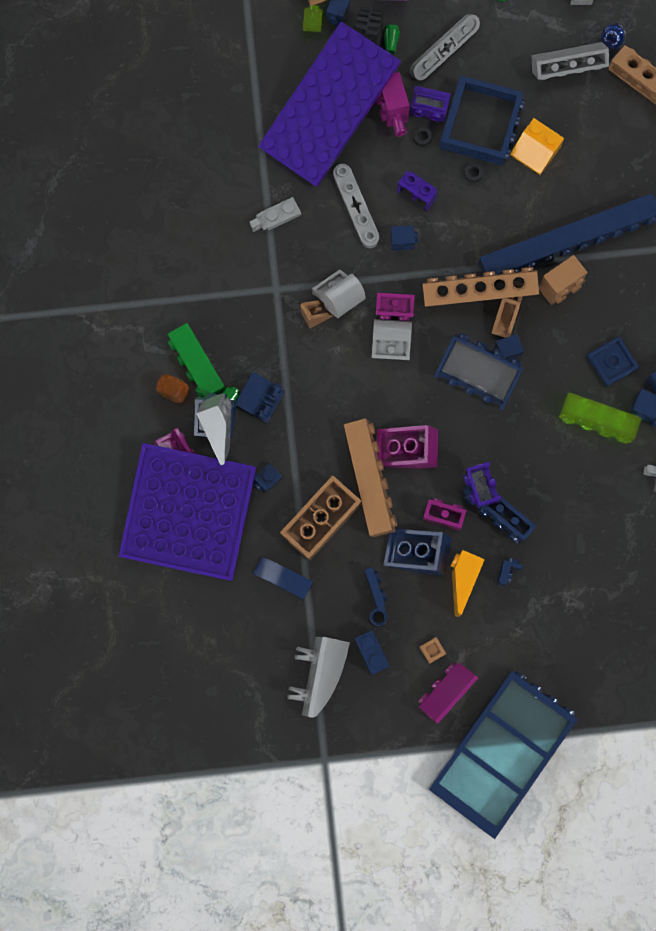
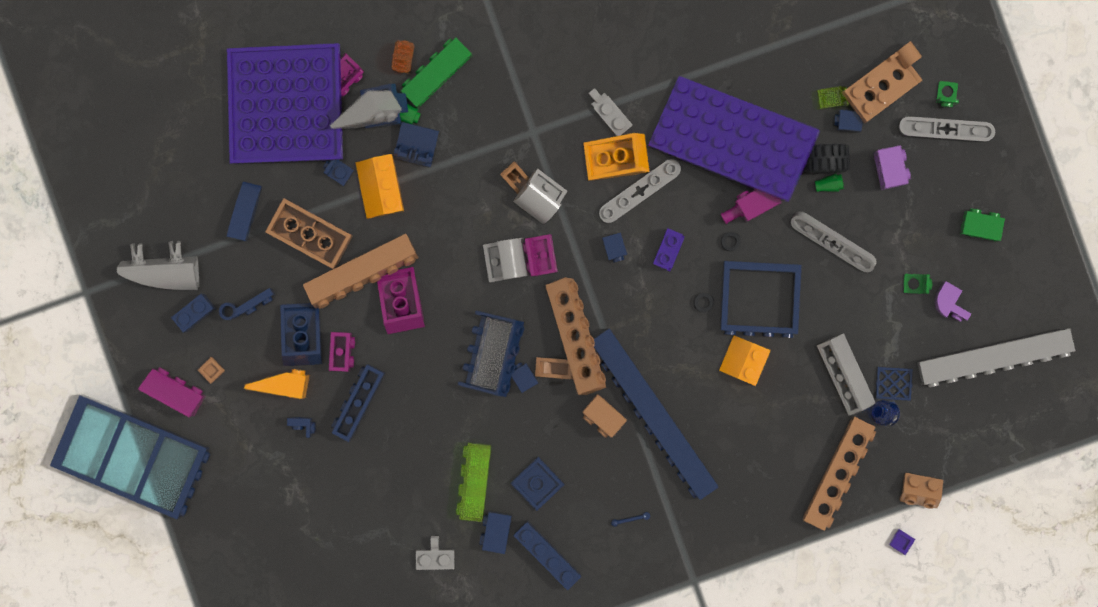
camera: 70 degrees right, 10 degrees up
(291, 441) = (379, 186): none -> light orange slope
(318, 218) = (616, 156): none -> light orange slope
(429, 103) = (766, 240): dark purple window -> none
(481, 485) = (372, 381): dark purple window -> none
(590, 34) = (893, 397): none -> dark blue window

